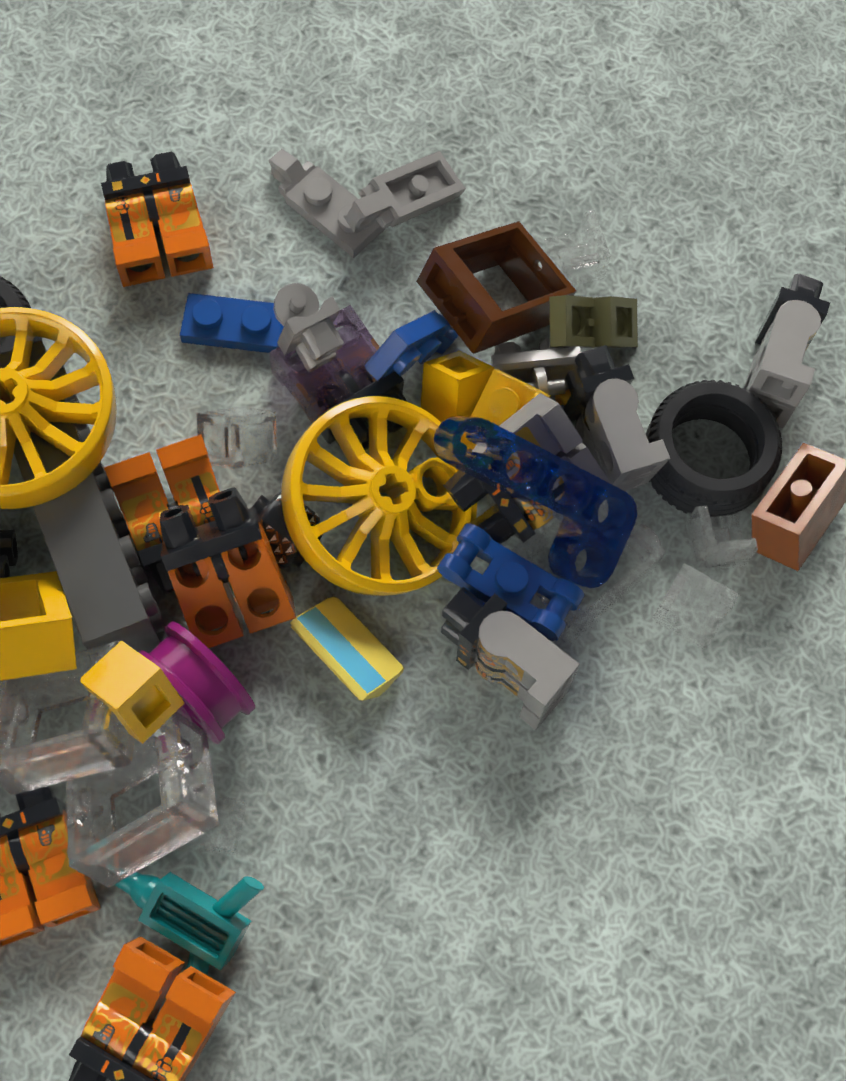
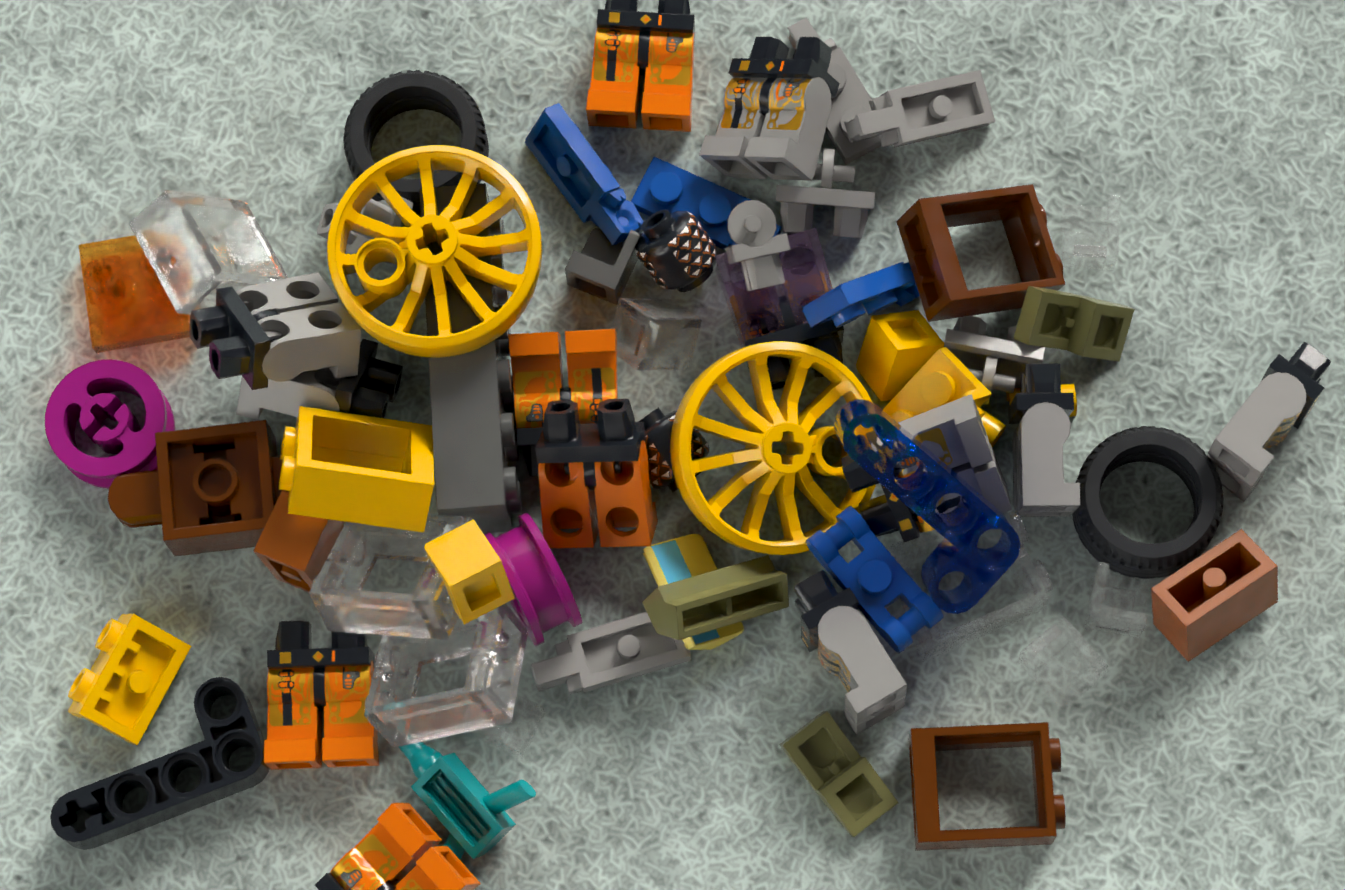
camera: 30 degrees right, 5 degrees up
(129, 324) = (582, 175): none -> blue hinge
(173, 393) = (603, 267): none -> dark grey panel
(233, 360) = (676, 250): none -> black head
(278, 222) = (774, 112): none -> hips
(292, 728) = (609, 655): none -> light grey hinge
(370, 282) = (850, 208): none -> light grey hips
(372, 646) = (717, 598): none -> olive piece
(535, 771) = (839, 773): none -> olive slope
(620, 760) = (1045, 761): none -> reddish brown window

